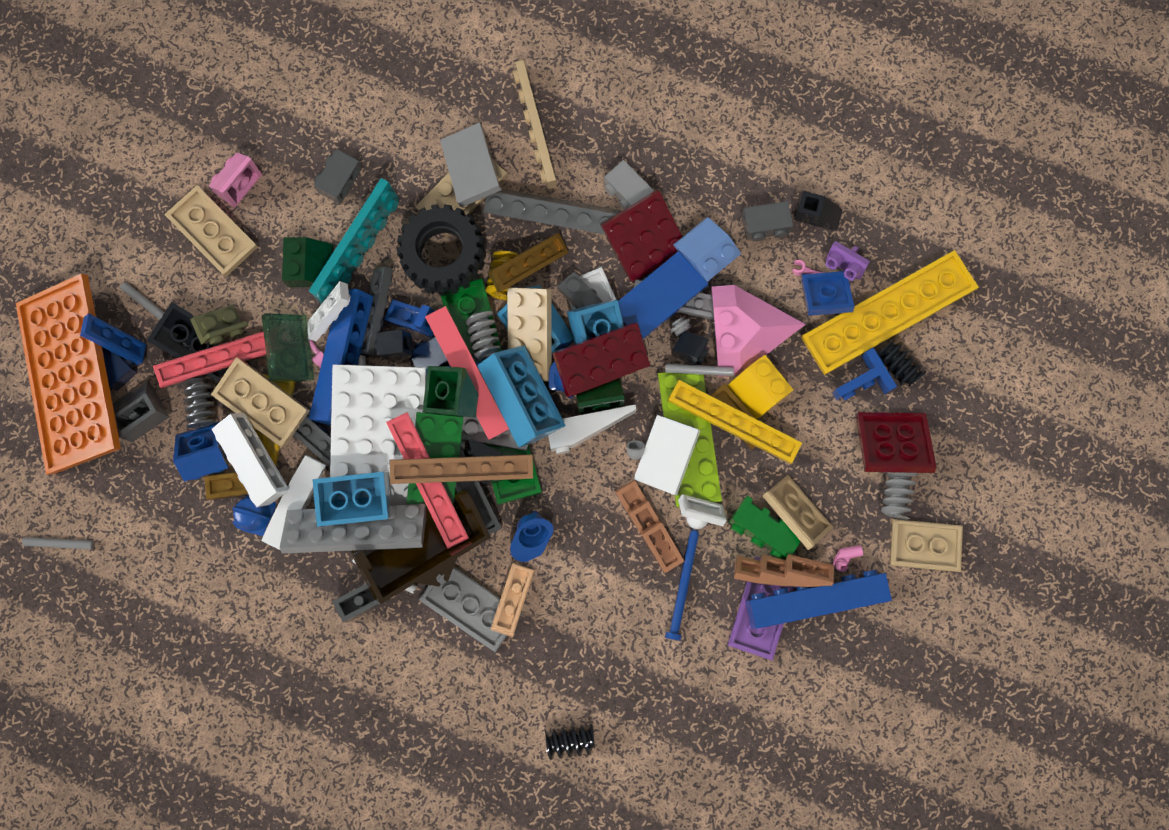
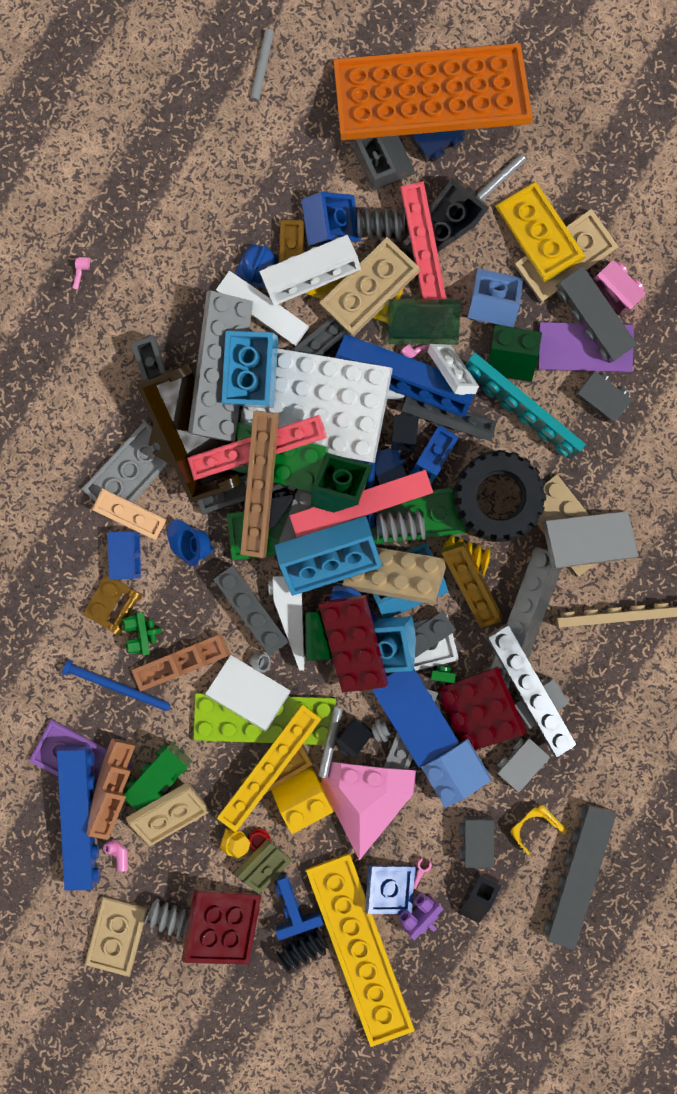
camera: 95 degrees right, 10 degrees up
(113, 339) = (459, 143): blue tile -> none
(190, 256) = (540, 232): none -> yellow tile
(218, 324) = (460, 253): olive bracket -> none
(258, 287) = (495, 298): none -> medium blue slope
(261, 193) = (596, 315): none -> dark grey brick
(271, 688) = (81, 263): none -> bright pink hand
(294, 198) = (568, 349): none -> medium lavender tile
(553, 598) = (124, 555): none -> blue hinge
(586, 464) = (251, 610): none -> dark grey brick
(600, 609) = (105, 601): none -> pearl gold plate
(617, 193) = (530, 690): none -> plate
(617, 278) = (443, 674): none -> green plate
(626, 566) = (137, 623): none -> green hips
(687, 194) = (521, 763): none -> light grey brick
(701, 512) = (184, 718): white tile -> none
(729, 171) = (542, 812): none -> yellow helmet
(780, 127) = (579, 876): none -> dark grey brick
(806, 423) = (257, 838): none -> red plate
(813, 445) = (234, 843): none -> yellow piece
(830, 414) = (263, 866): none -> olive plate

